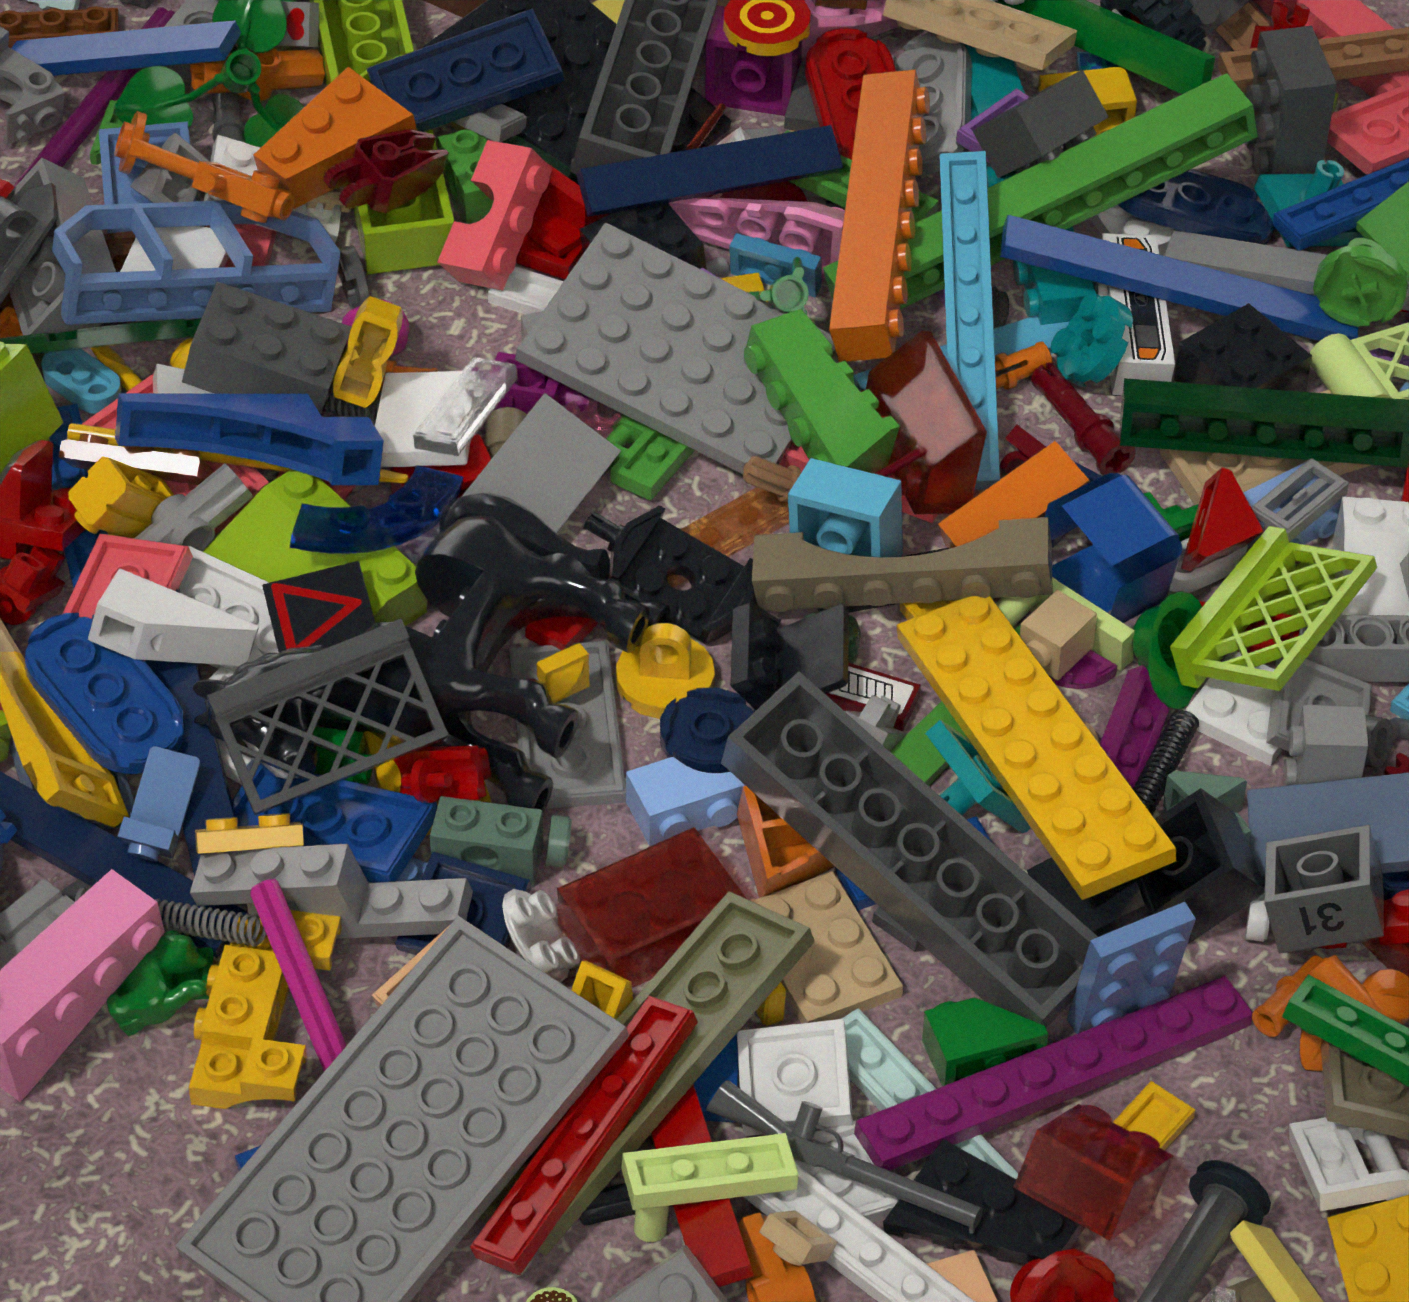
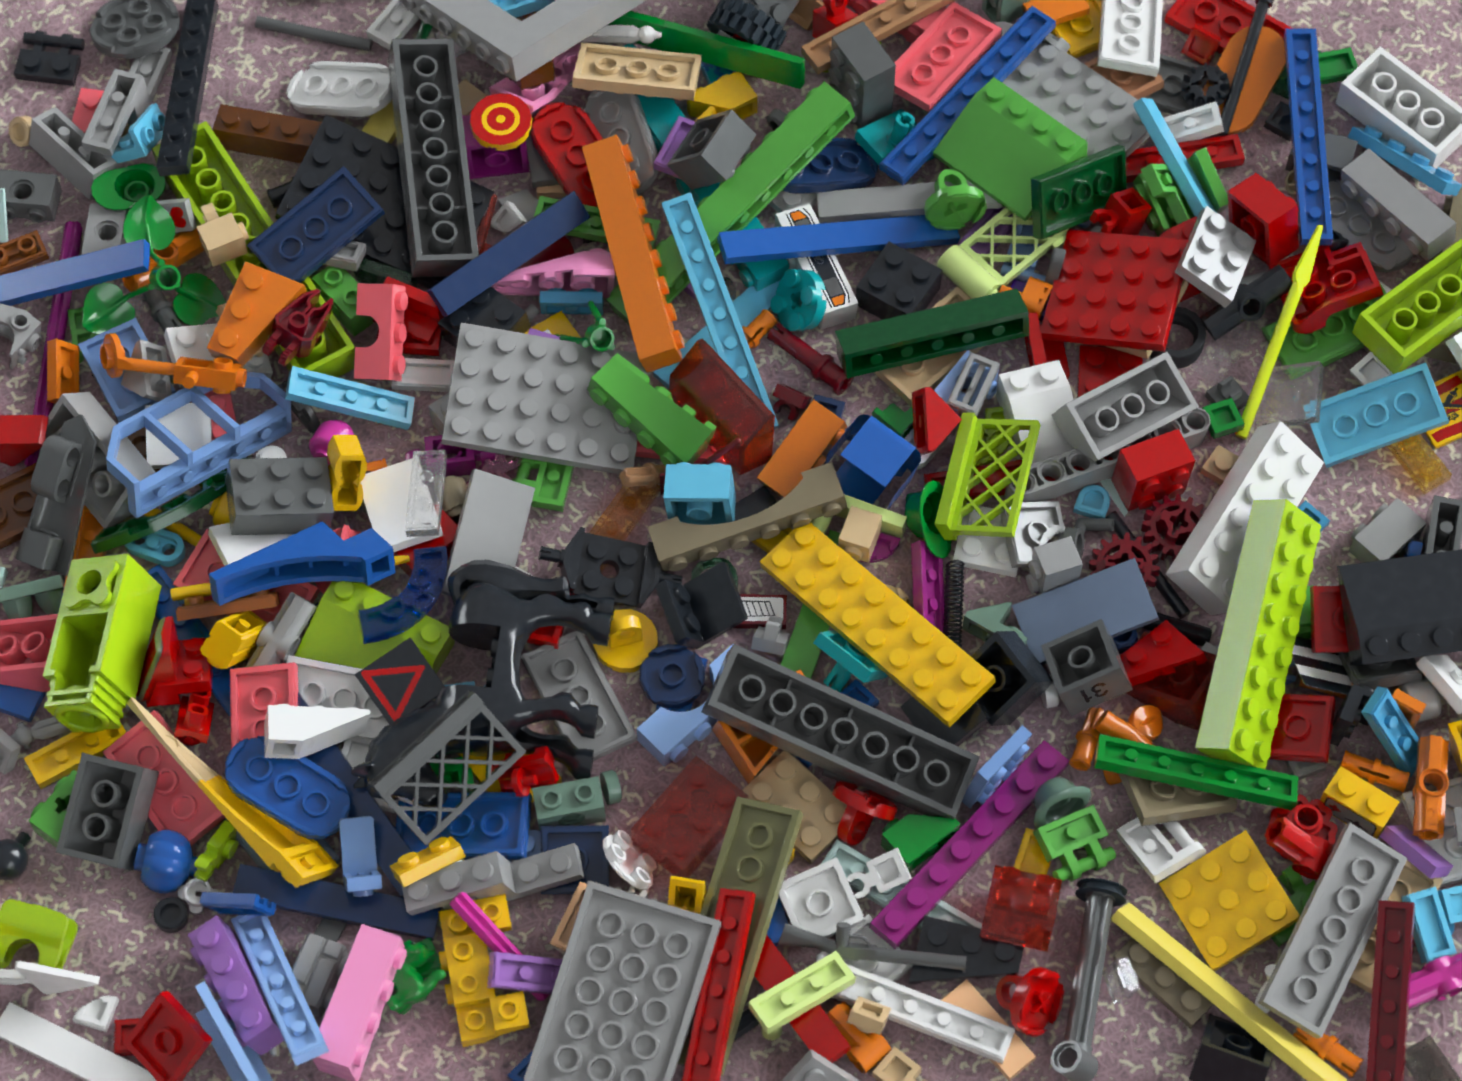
camera: 20 degrees left, 15 degrees up
(71, 144) = (62, 369): none -> orange plate
(198, 930) = (351, 932): light grey piece -> none
(309, 1017) = (523, 972): none -> medium lavender tile
(338, 47) = (221, 236): none -> tan brick
(421, 281) = (349, 398): none -> medium azure plate
(565, 672) = (567, 669): yellow tile -> none
(908, 1063) = (884, 872): none -> white plate
(909, 972) = (860, 811): none -> red tile
(1213, 1061) = (1058, 799): none -> sand green hat
(1216, 1105) = (1070, 834): none -> bright green plate

